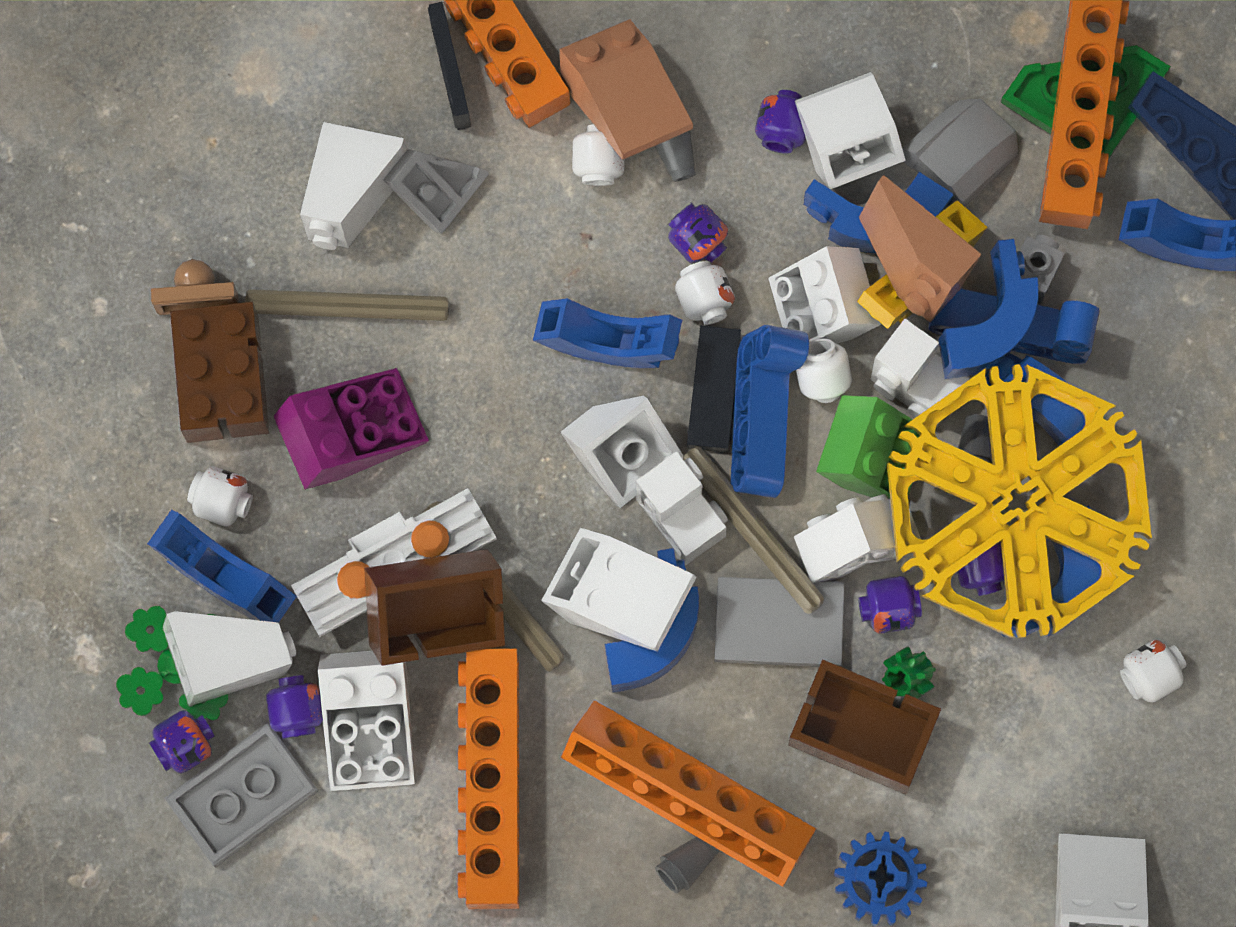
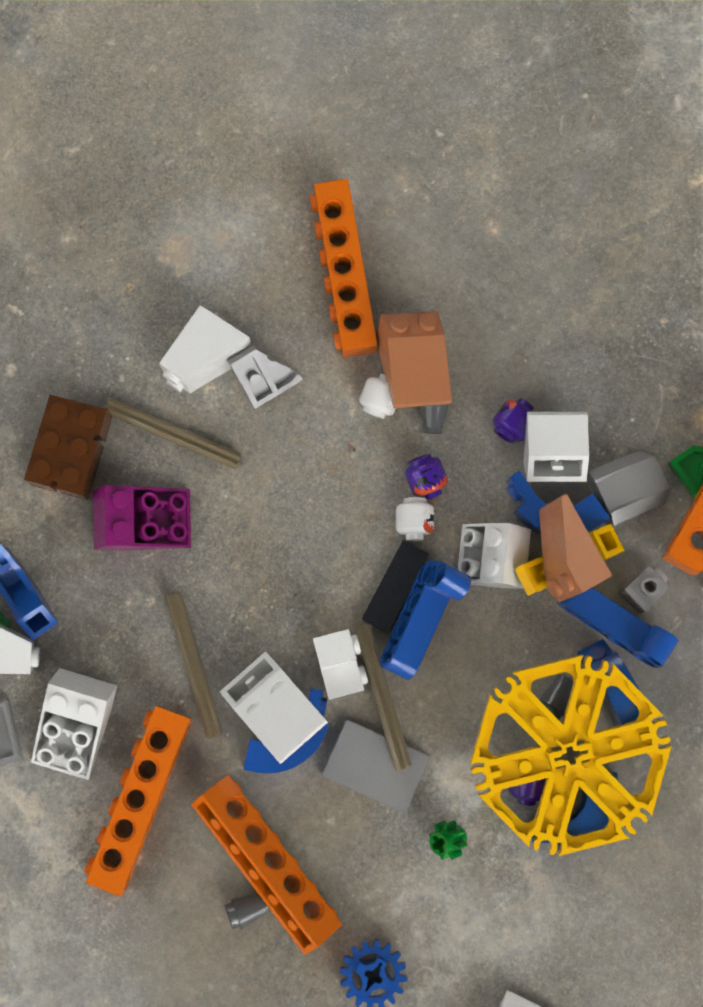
camera: 15 degrees right, 5 degrees up
(193, 289) = (74, 385): medium nougat tile -> none
(219, 496) = (35, 532): white head -> none
(294, 707) = (26, 698): dark purple head -> none
(339, 591) = (128, 615): white piece -> none
(438, 603) = (154, 669): reddish brown piece -> none
(449, 66) = (305, 295): black tile -> none
(606, 337) = (337, 524): blue arch -> none
(620, 444) = (317, 604): white slope -> none
(825, 371) = (475, 607): white head -> none
(849, 538) = (445, 731): white brick -> none
(861, 443) = (481, 667): bright green slope -> none
(861, 729) = (403, 867): reddish brown piece -> none
(890, 605) = (455, 785): dark purple head -> none
(912, 370) = (536, 634): white brick -> none
(983, 345) = (609, 627): blue arch -> none
(1153, 671) = (616, 903): white head -> none

